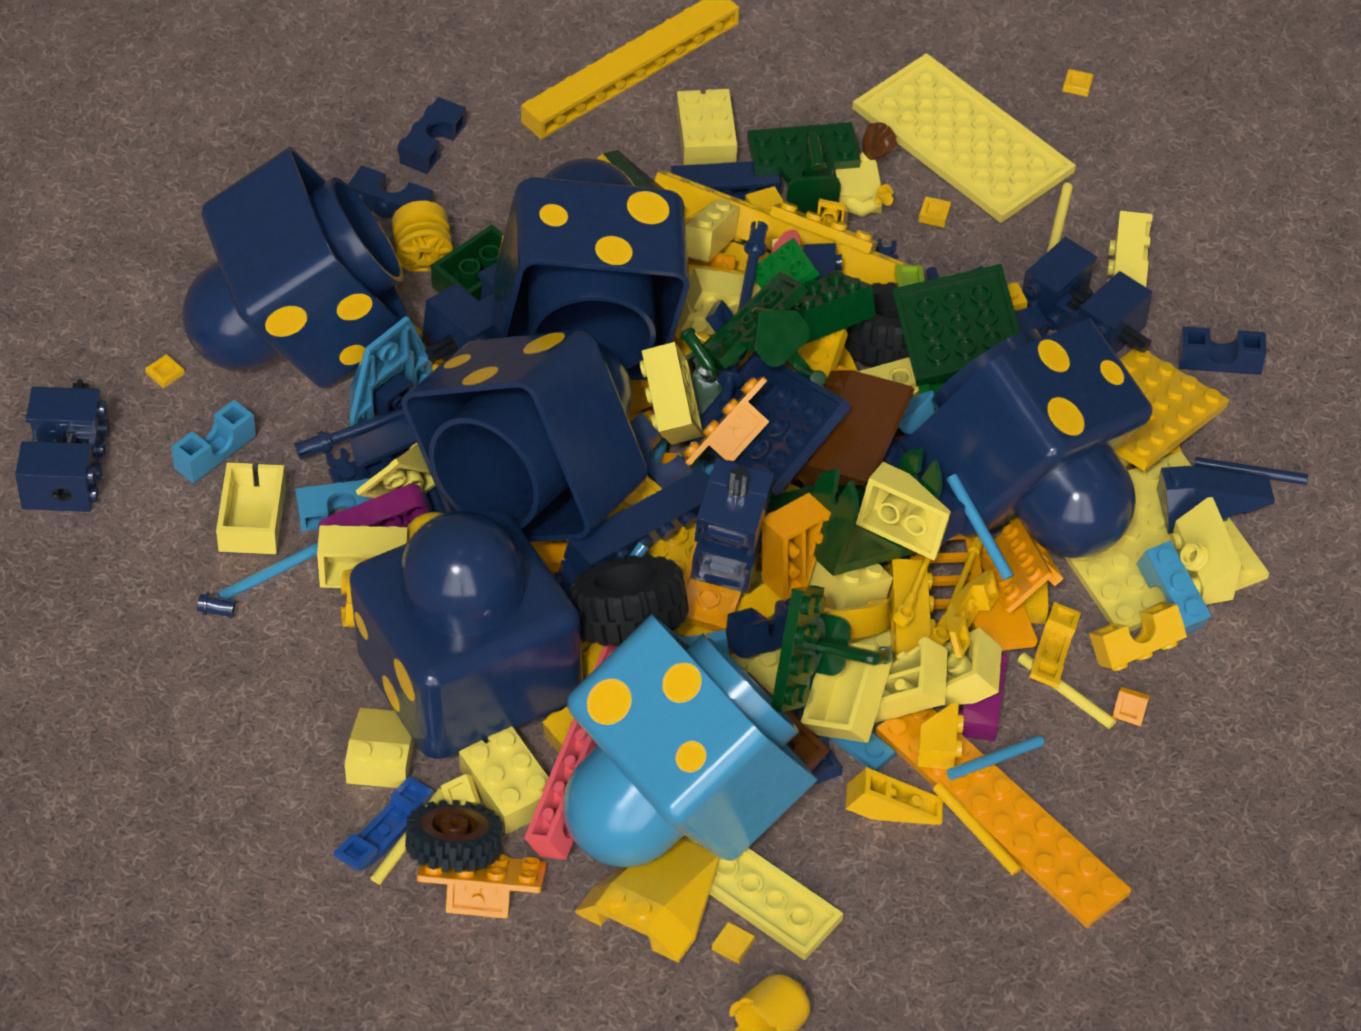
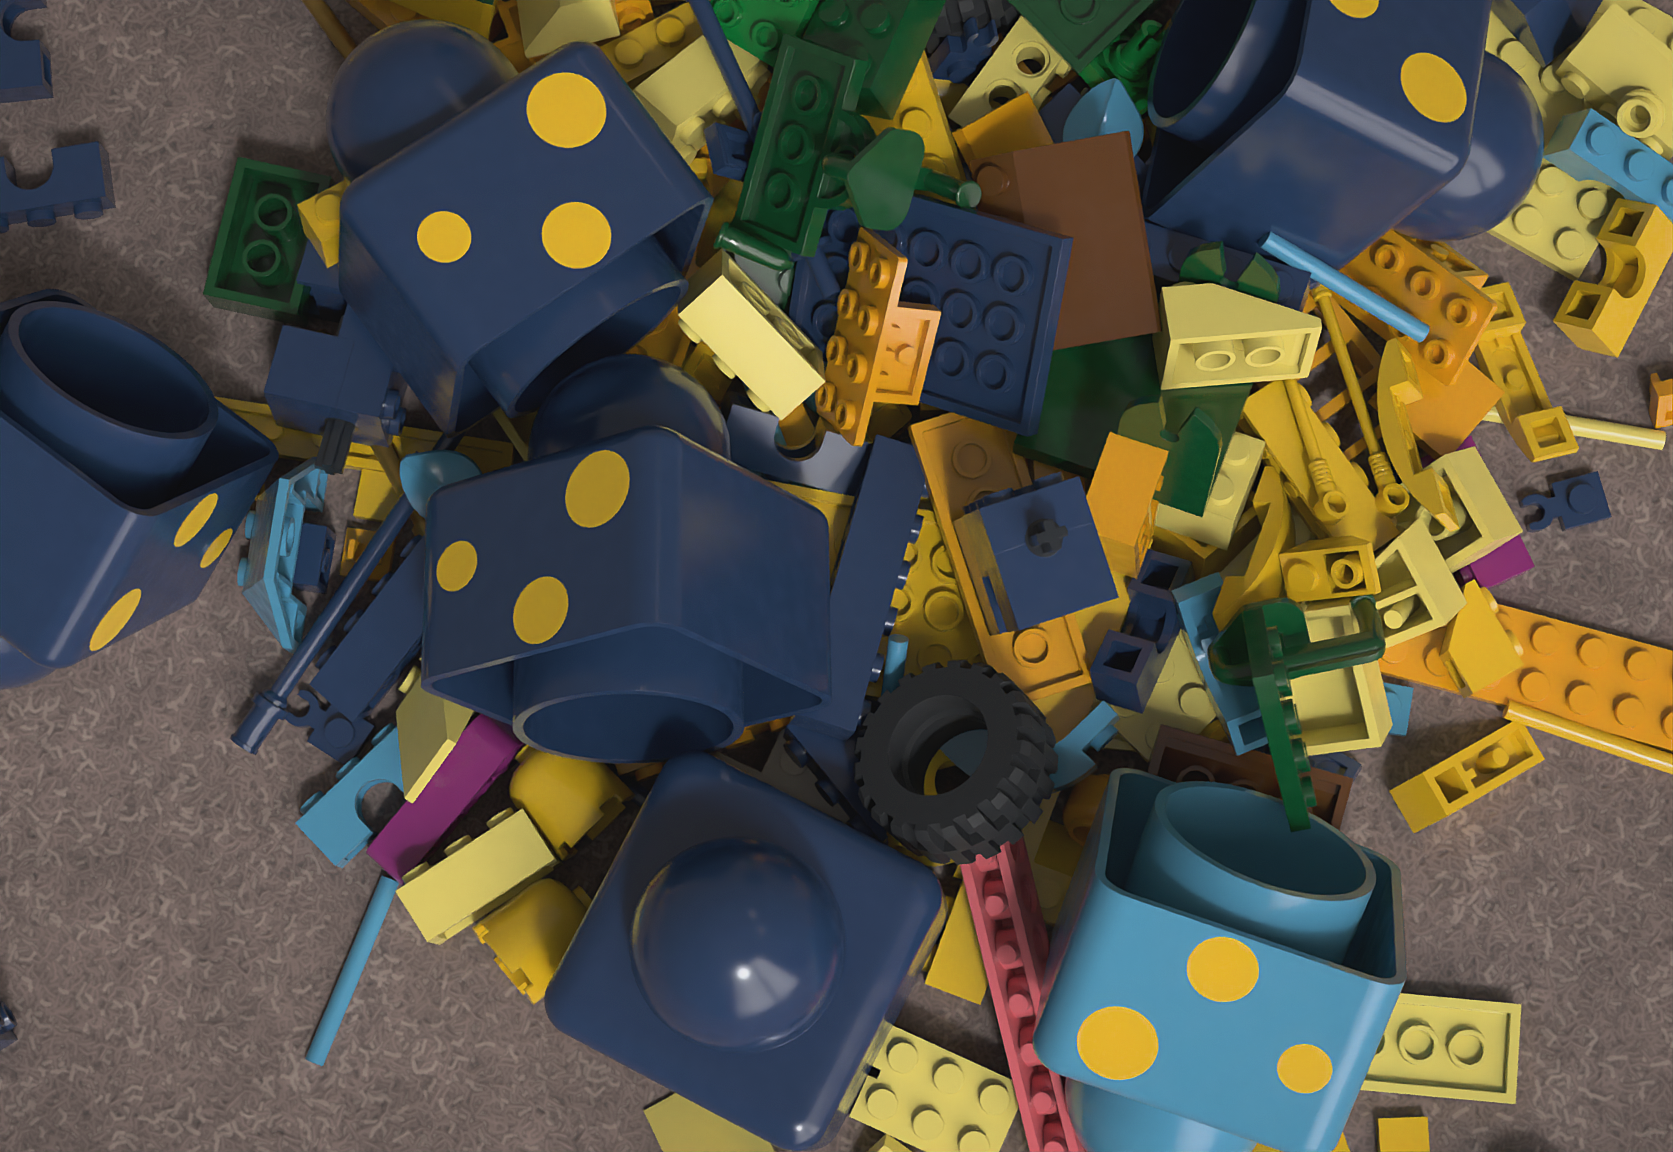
camera: 30 degrees left, 30 degrees up
(216, 605) = (321, 1084): dark blue pin -> none
(231, 430) = (120, 788): dark azure arch -> none
(249, 513) = (254, 896): light yellow piece -> none
(421, 235) = (145, 240): yellow wheel -> none
(870, 357) = (964, 56): none -> dark blue plate
(881, 632) = (1330, 569): none -> yellow slope
(995, 757) = (1559, 615): dark azure bar -> none
(1042, 722) = (1573, 501): none -> dark blue plate

